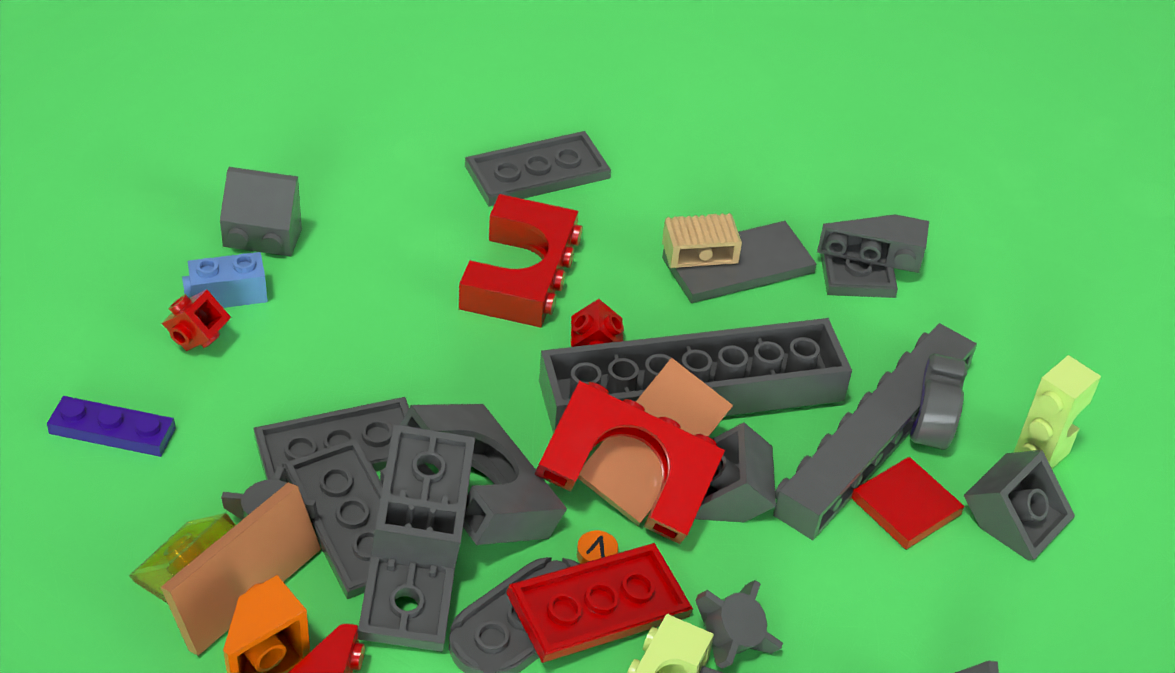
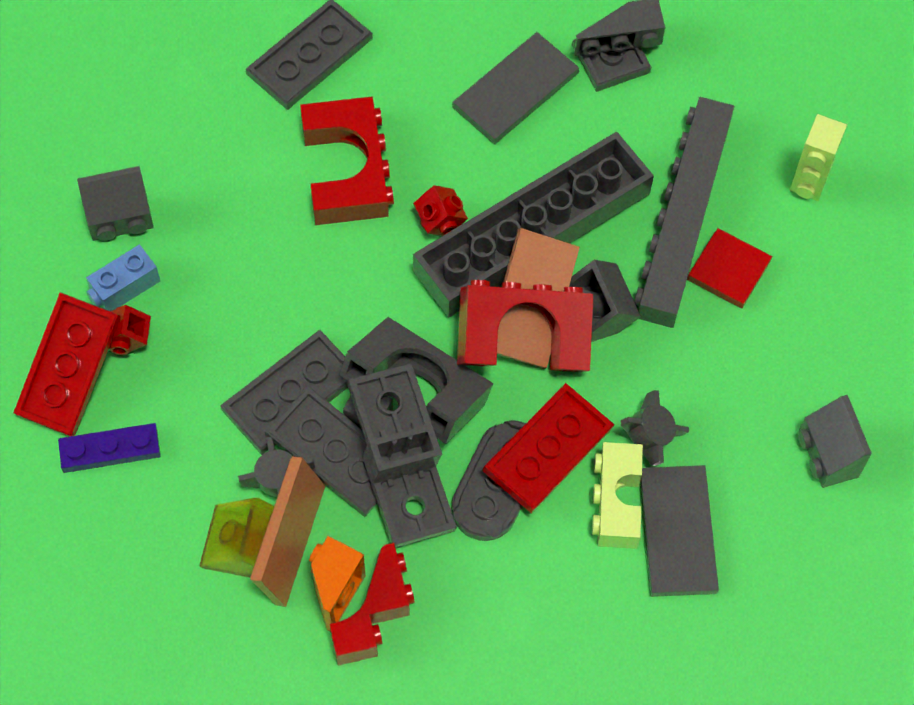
camera: 20 degrees left, 20 degrees up
(115, 327) = (67, 364): none -> red tile
(596, 545) = (525, 403): orange tile -> none
(701, 240) = (483, 86): tan brick -> none
(940, 402) = (727, 173): dark grey animal -> none
(1020, 503) = (811, 237): dark grey slope -> none

